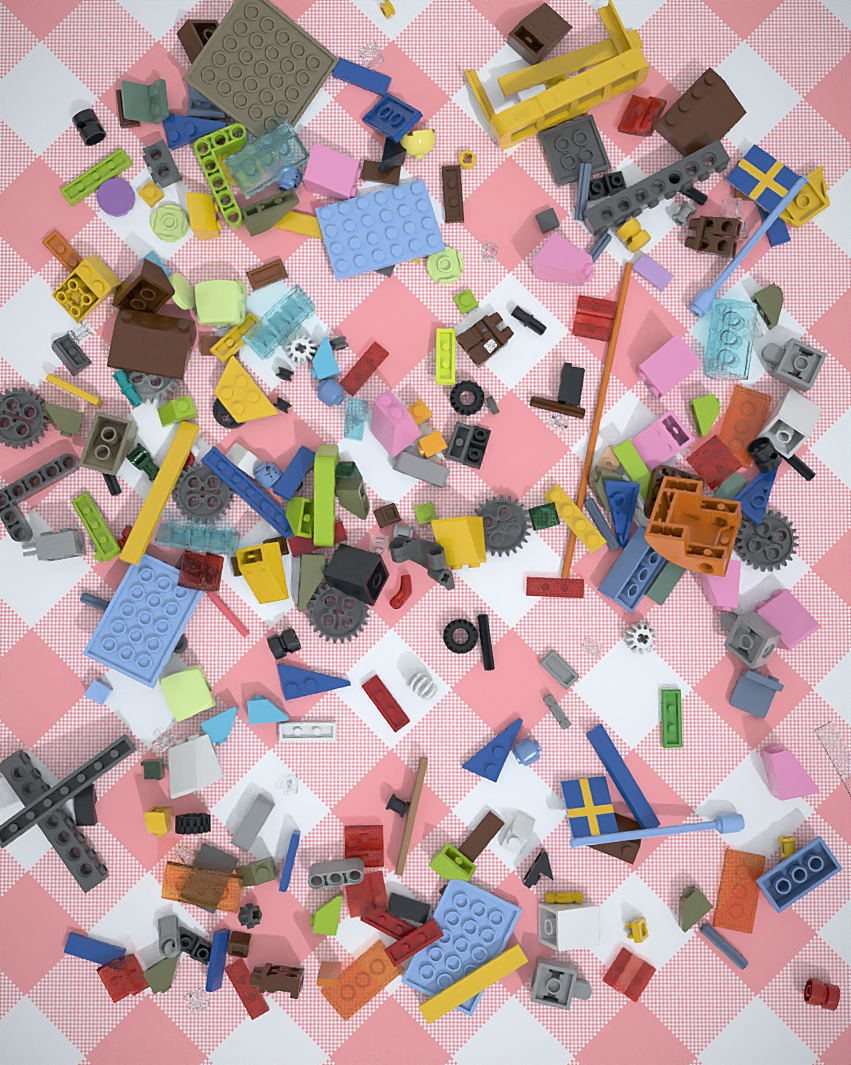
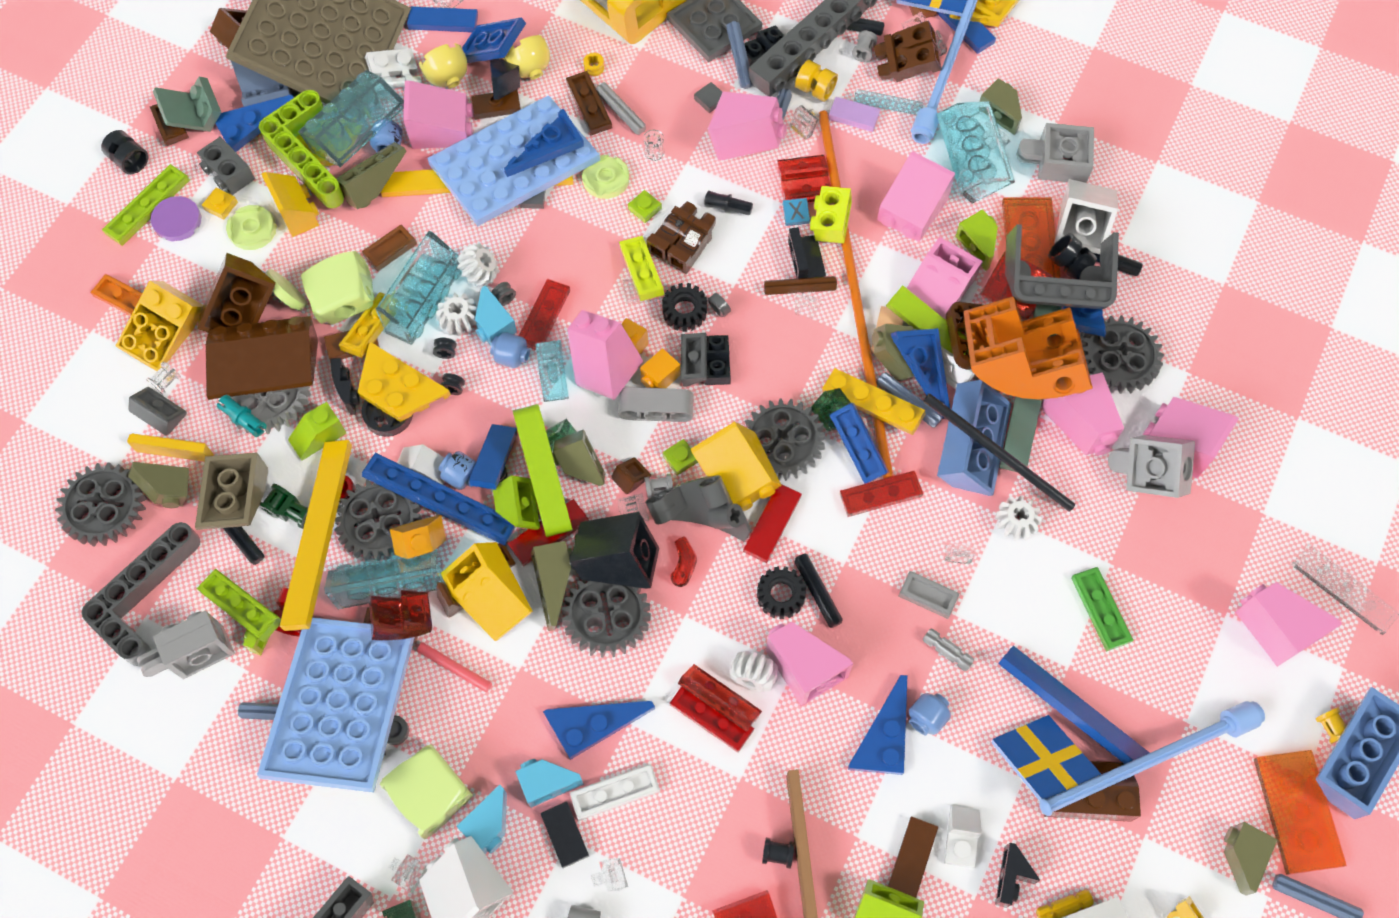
camera: 20 degrees left, 20 degrees down
(98, 691) = (295, 835): light blue slope -> none
(206, 388) = (344, 386): none -> black slope
(227, 519) = (418, 537): none -> light orange slope
(267, 748) = (564, 835): none -> black tile
(284, 643) = (544, 677): black wheel -> none
(310, 110) = (393, 63): none -> white plate
(327, 316) = (478, 264): none -> white gear
(350, 130) = (445, 66): none -> light yellow cylinder
(395, 694) = (720, 697): none -> clear red tile
(413, 229) = (553, 141): none -> blue wing
(457, 693) = (806, 661): none -> bright pink slope
(472, 584) = (772, 523): none -> red tile
(475, 208) = (621, 108): none -> light grey axle
(552, 548) = (859, 443): none -> blue tile
(576, 344) = (796, 212): none -> dark azure tile
(605, 361) = (831, 214): none -> neon yellow brick
(611, 269) = (804, 121): none -> clear tile
(644, 590) = (999, 452): none -> black piece
(683, 270) = (887, 102): none -> clear light blue axle
(755, 692) = (1194, 536): sand blue bracket -> none
(758, 494) = (1093, 290): none -> dark grey windscreen

